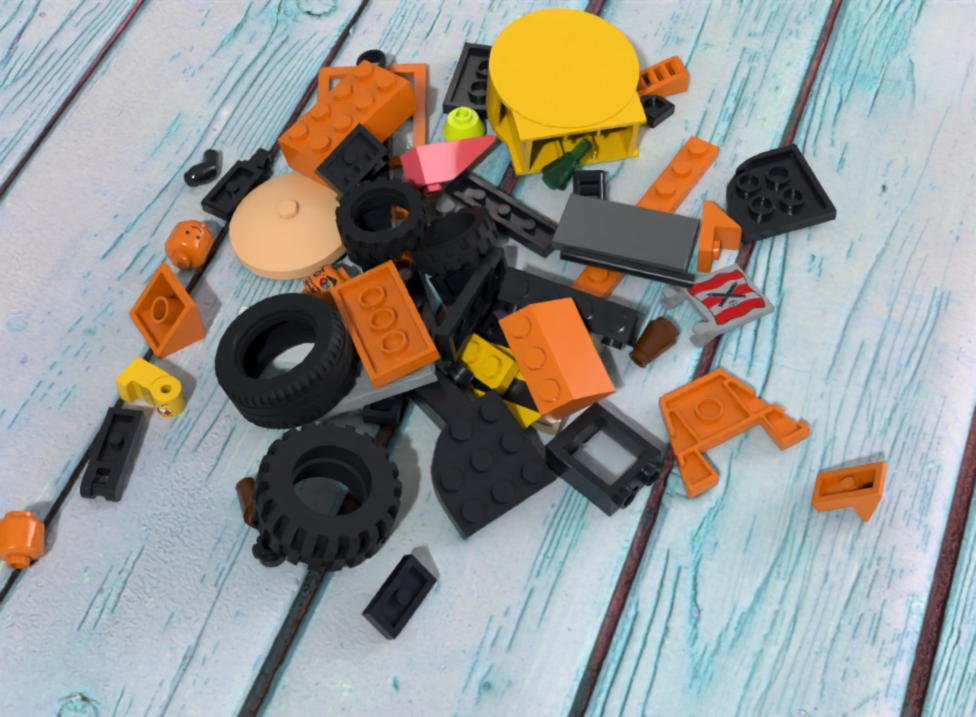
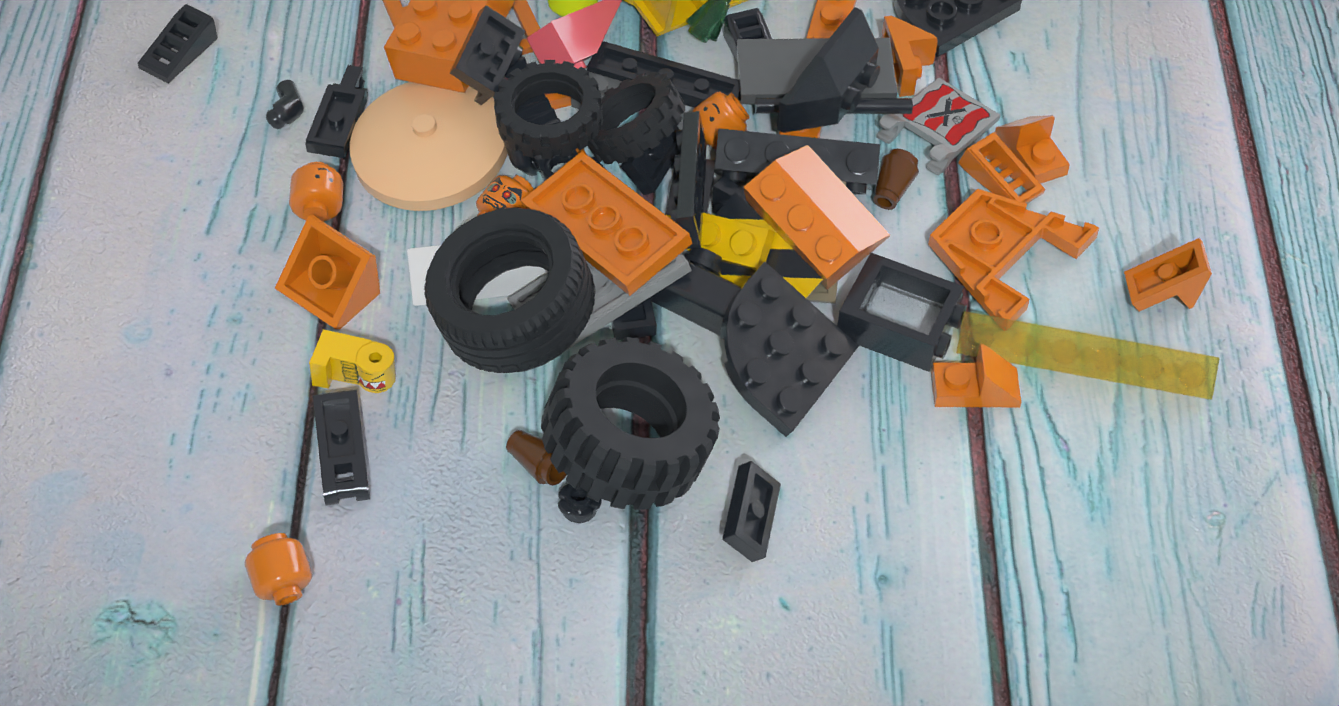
camera: 25 degrees left, 0 degrees up
(158, 99) = (188, 23): none -> black slope
(529, 255) = (721, 113): none -> orange head
(625, 241) = (833, 78): none -> black wedge
(644, 539) = (979, 384): none -> orange slope
(749, 541) = (1090, 355): none -> clear yellow plate
(750, 333) = (999, 154): none -> orange slope
(789, 345) = (1032, 145): none -> orange slope

